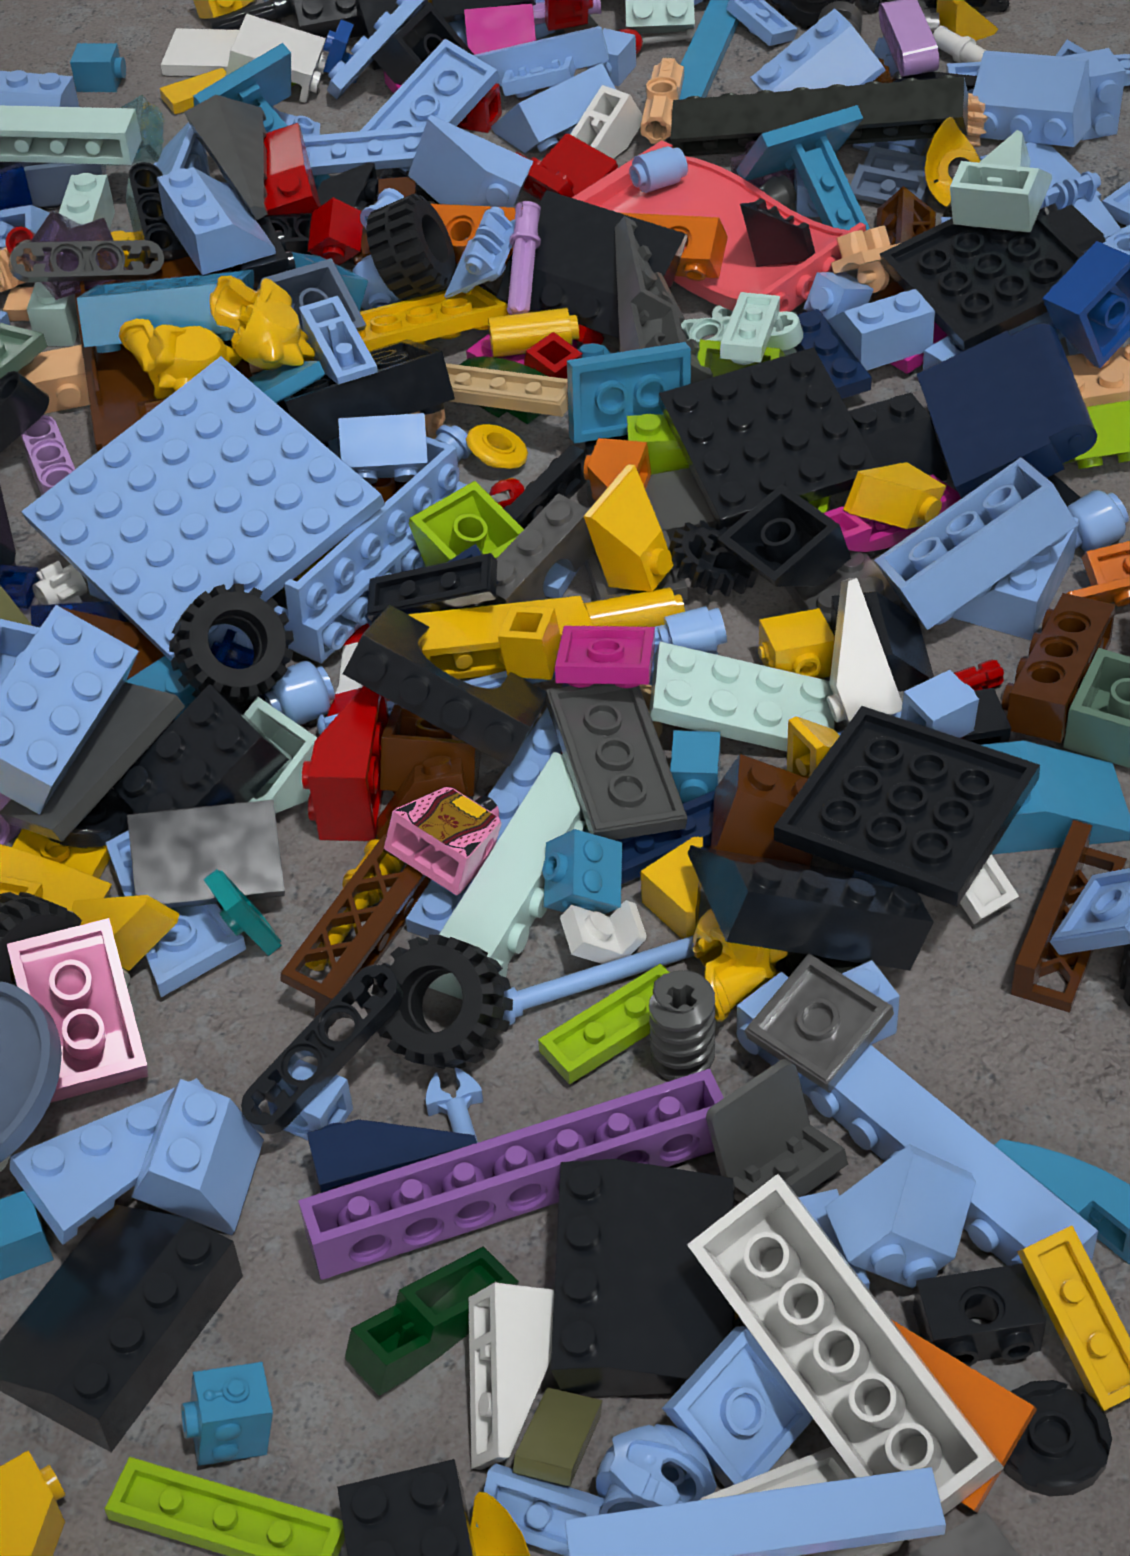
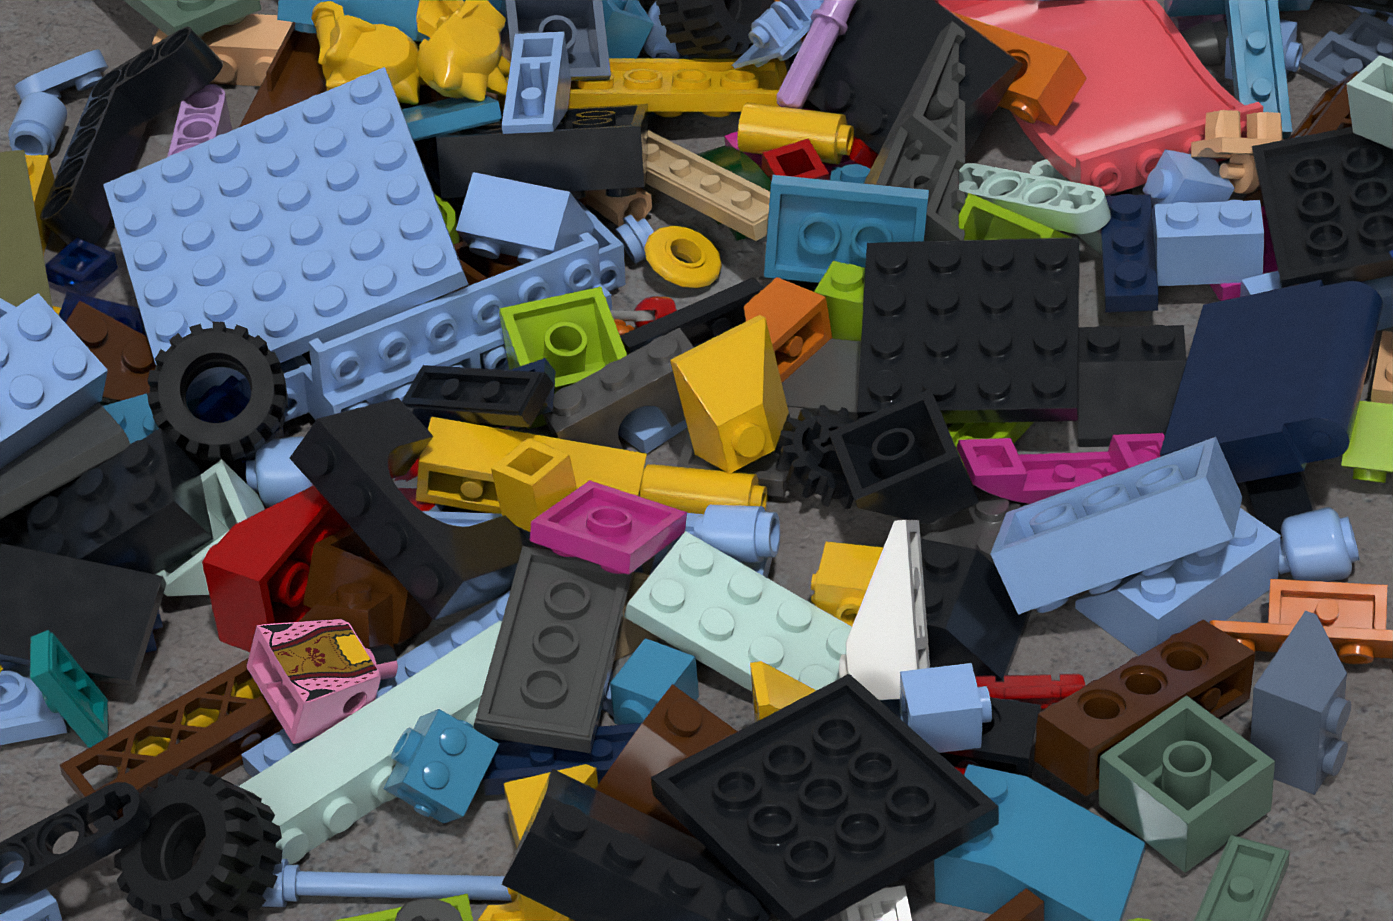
camera: 25 degrees right, 5 degrees down
(59, 585) = (114, 281): white gear -> none
(603, 937) = (426, 841): white bracket -> none
(750, 328) = (1026, 193): light aqua plate -> none
(775, 238) = (1137, 86): black slope -> none
(895, 495) = (1076, 440): yellow slope -> none

